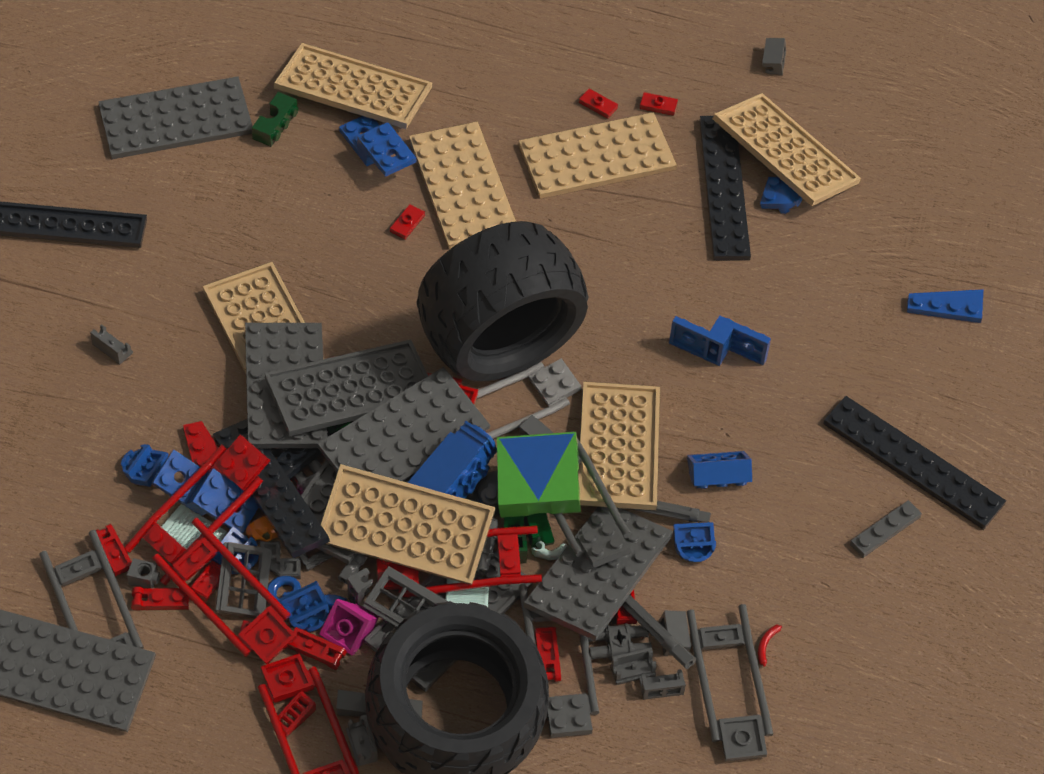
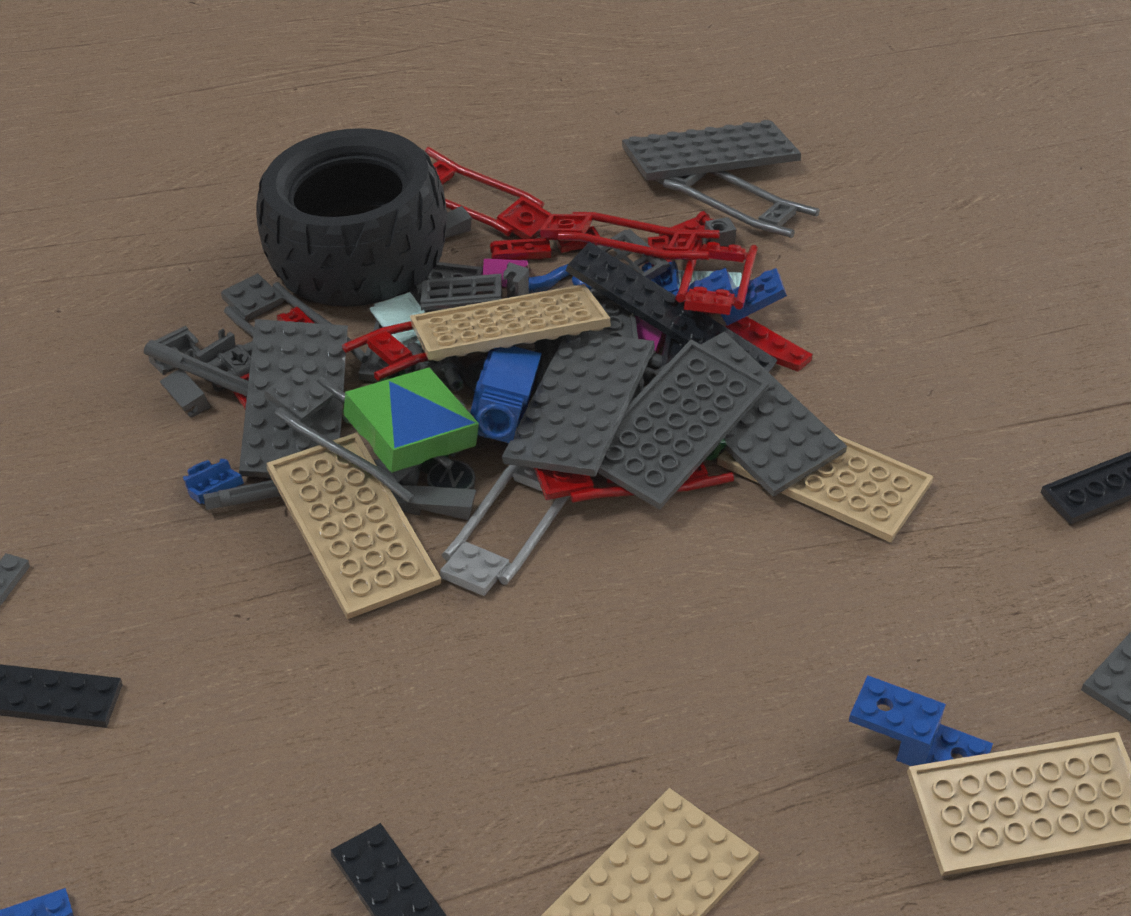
camera: 150 degrees right, 10 degrees down
(110, 345) = (956, 385): dark grey hinge -> none
(114, 550) = (766, 241): red plate -> none
(143, 464) = (810, 308): blue slope -> none
(269, 130) = (1064, 689): dark green arch -> none
(295, 703) = (497, 204): red slope -> none
(307, 607) = (552, 261): blue slope -> none
(407, 221) = (797, 669): red plate -> none
(461, 181) = (778, 757): tan plate -> none
(502, 301) = (568, 509): black tyre -> none
(717, 342) = (299, 699): blue bracket -> none
(720, 469) = (224, 563): blue slope -> none
(744, 735) = (74, 339): dark grey plate -> none
(764, 641) = (85, 433): red piece -> none

